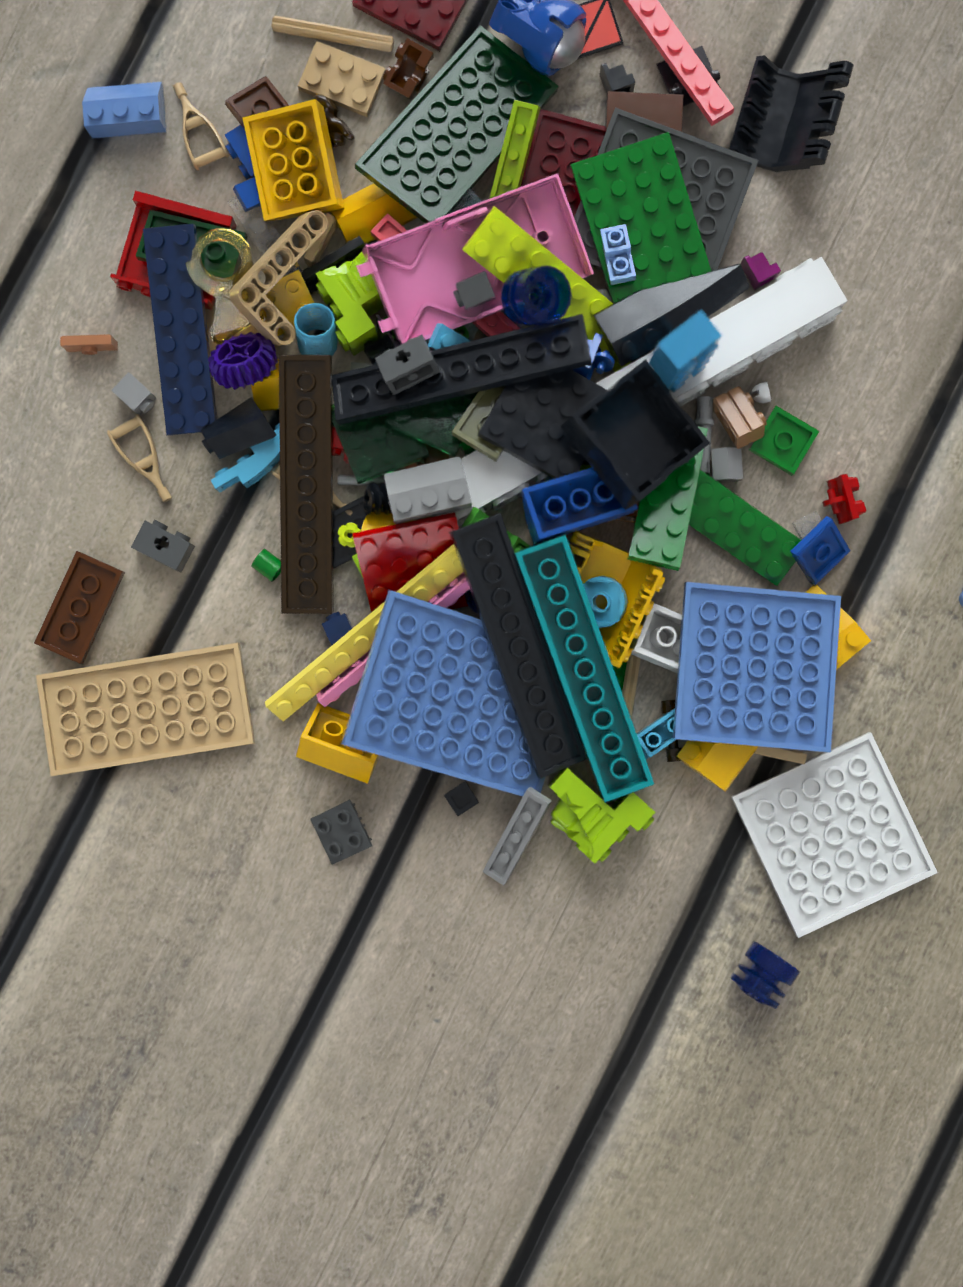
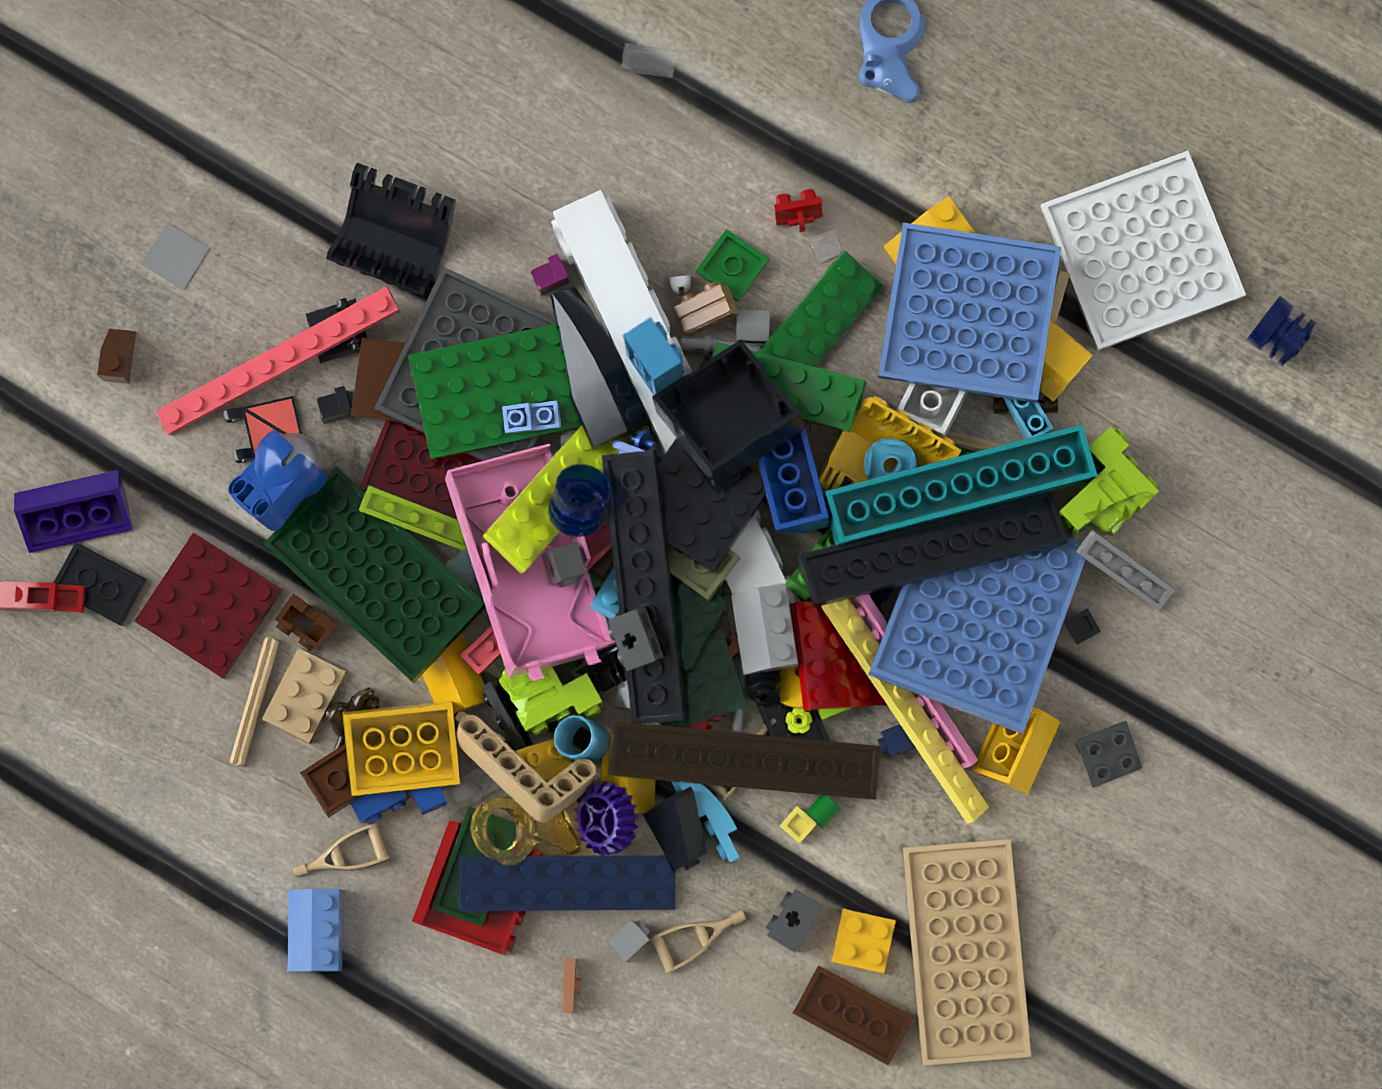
camera: 80 degrees left, 5 degrees down
(150, 612) = (863, 941): none -> yellow plate
(252, 542) = (798, 825): none -> light yellow plate
(820, 550) = (851, 238): blue tile -> none

